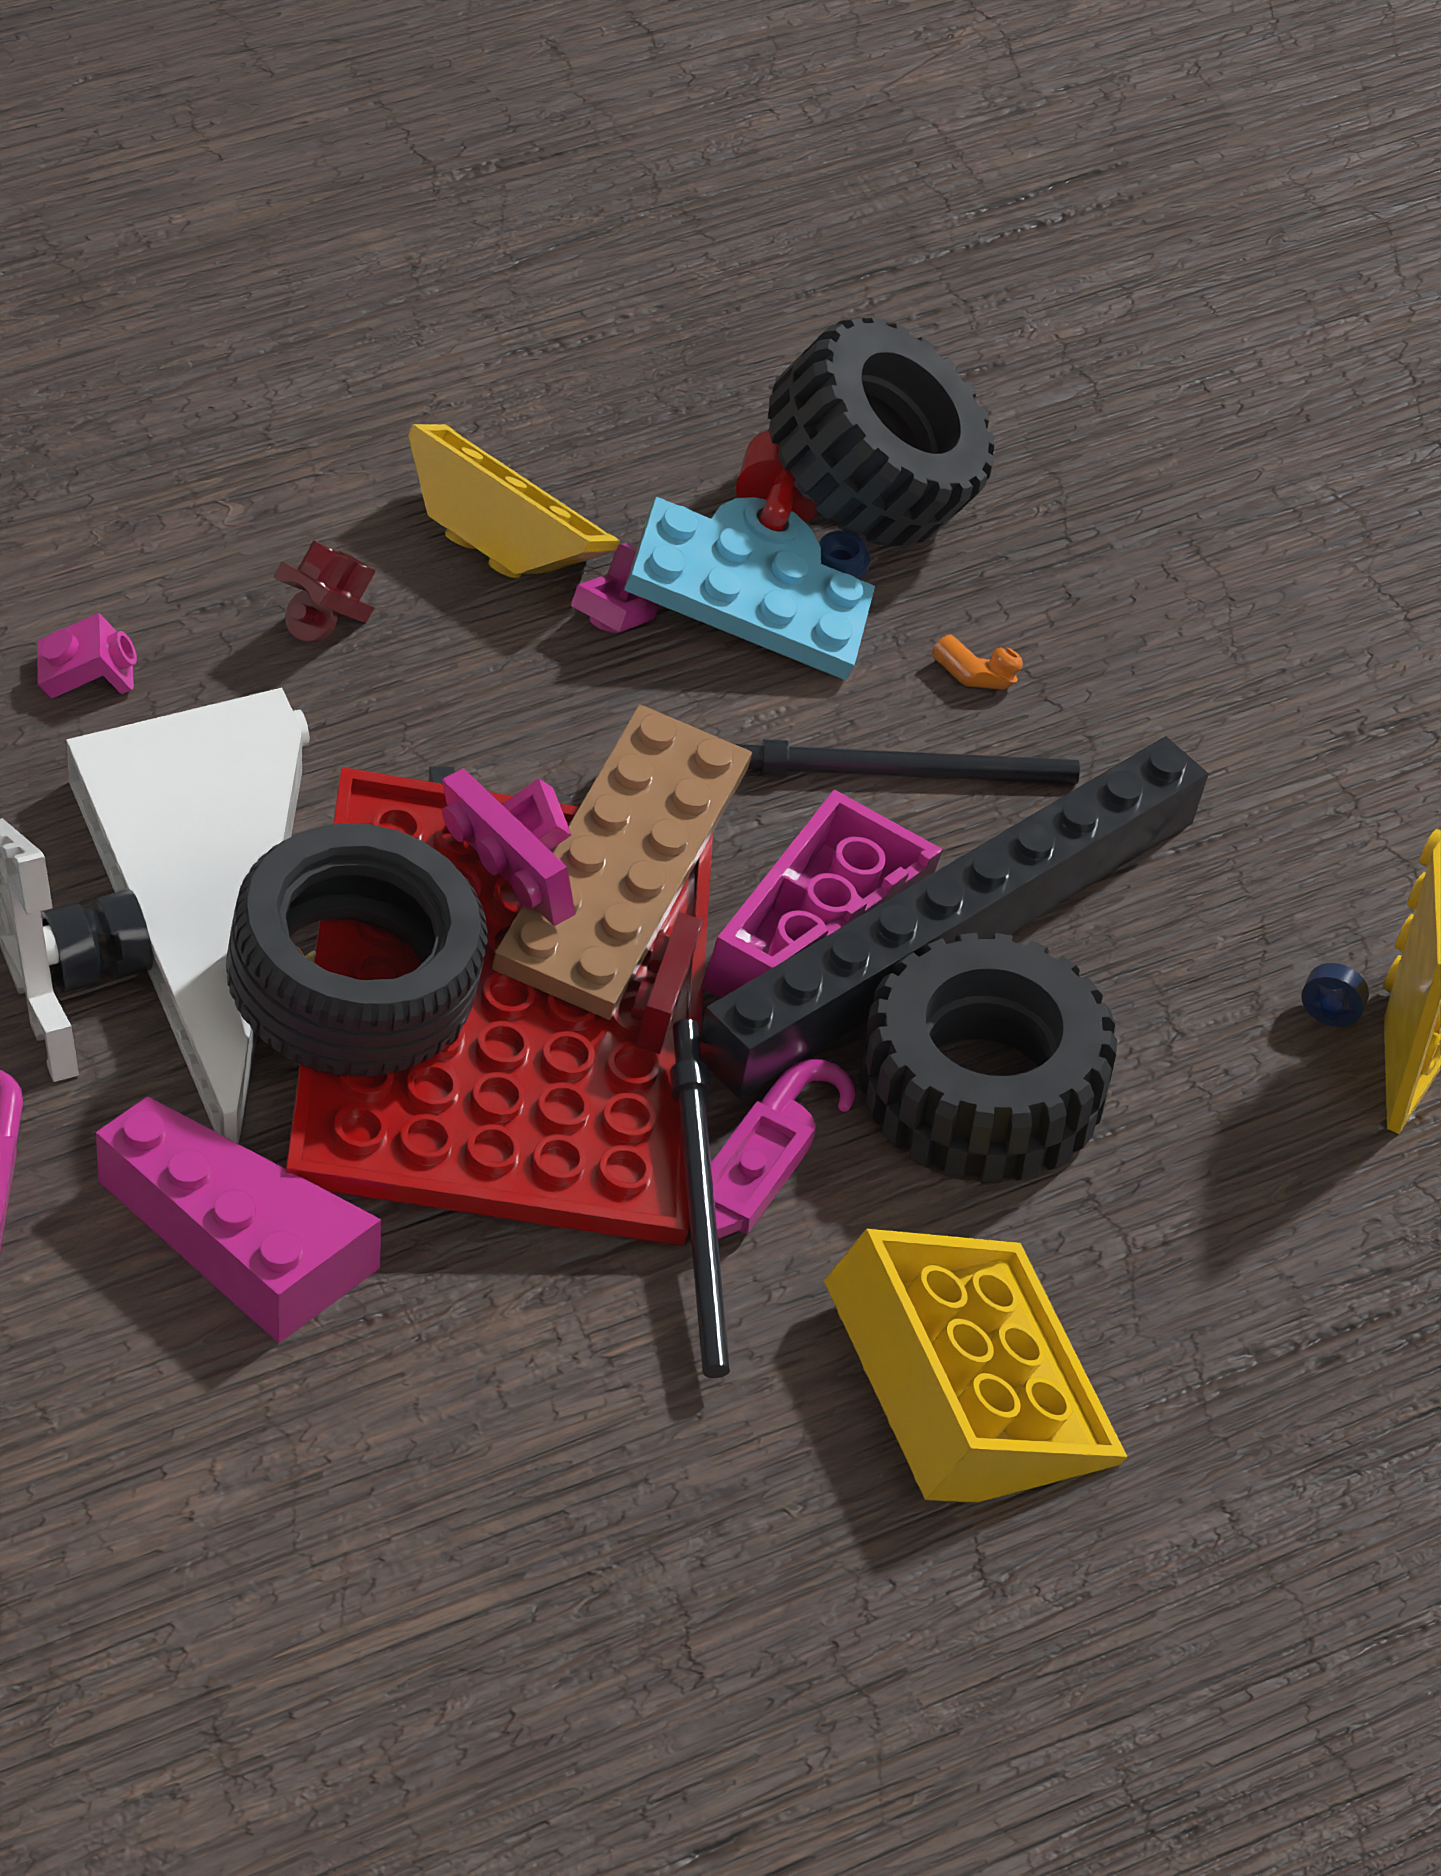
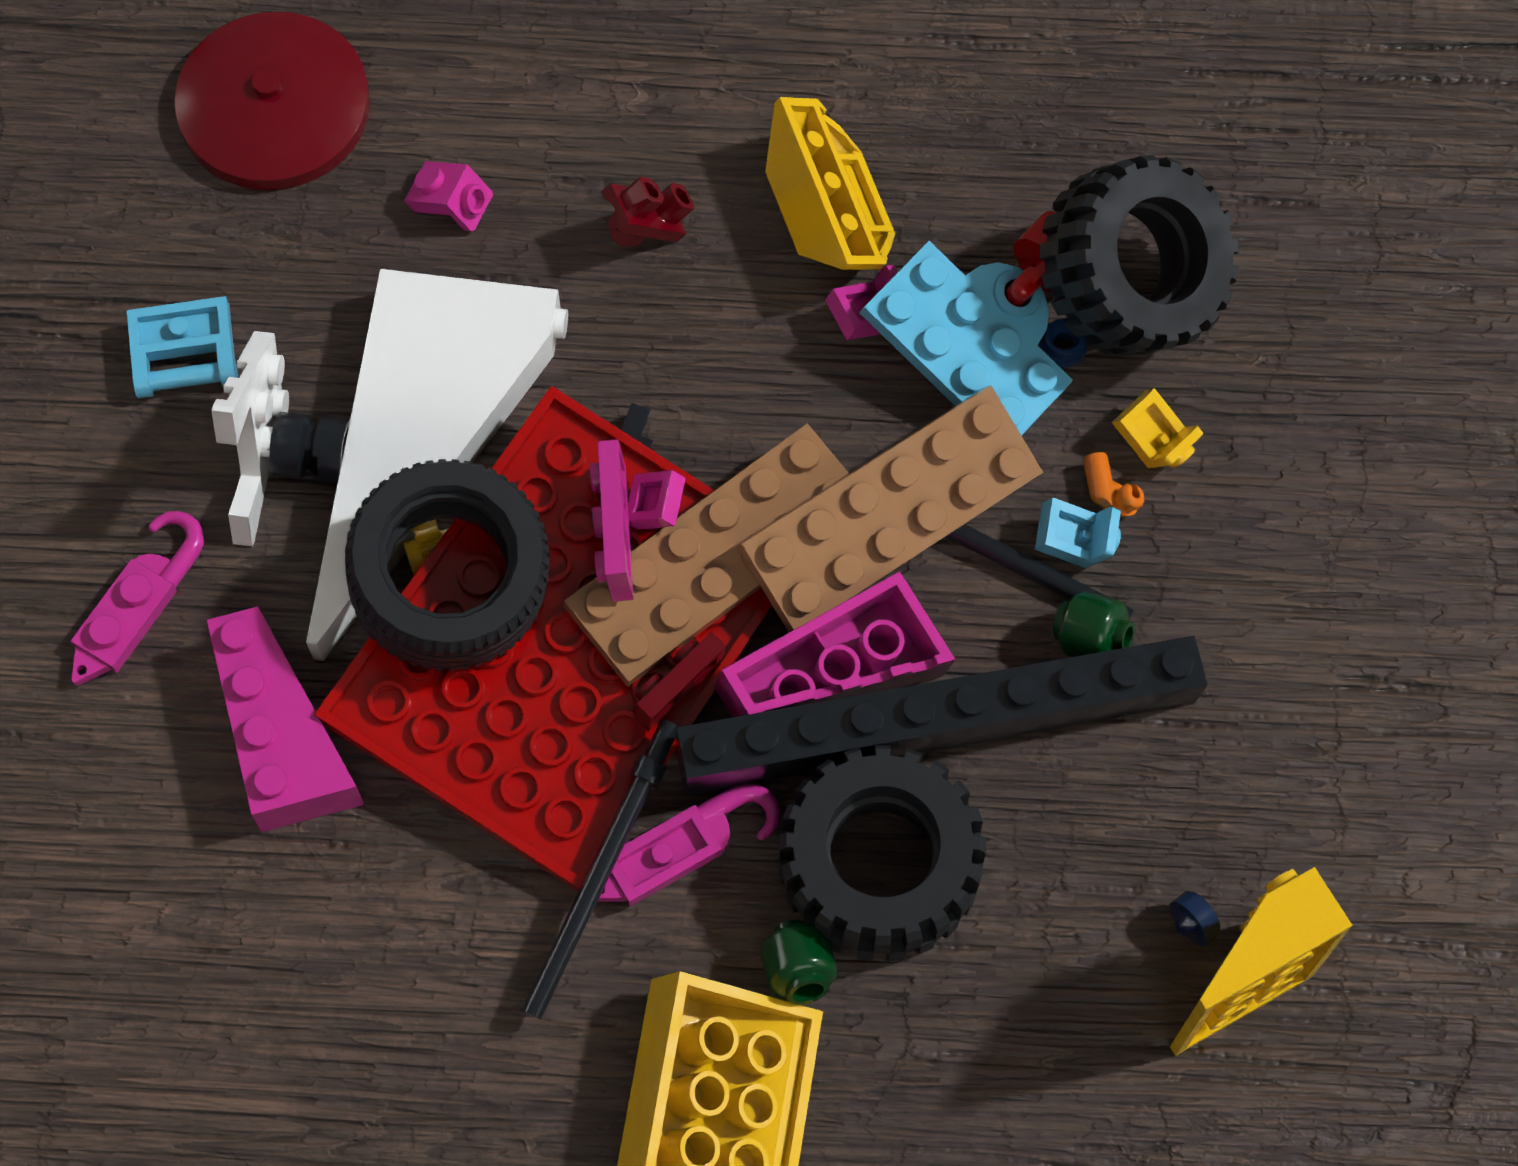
camera: 35 degrees right, 20 degrees up
(778, 749) = (890, 509): none -> medium nougat plate
(970, 1194) = (798, 962): none -> dark green head
(978, 715) = (1077, 533): none -> medium azure bracket
(990, 598) = (1156, 431): none -> yellow bracket
(1050, 772) = (1092, 625): none -> dark green head

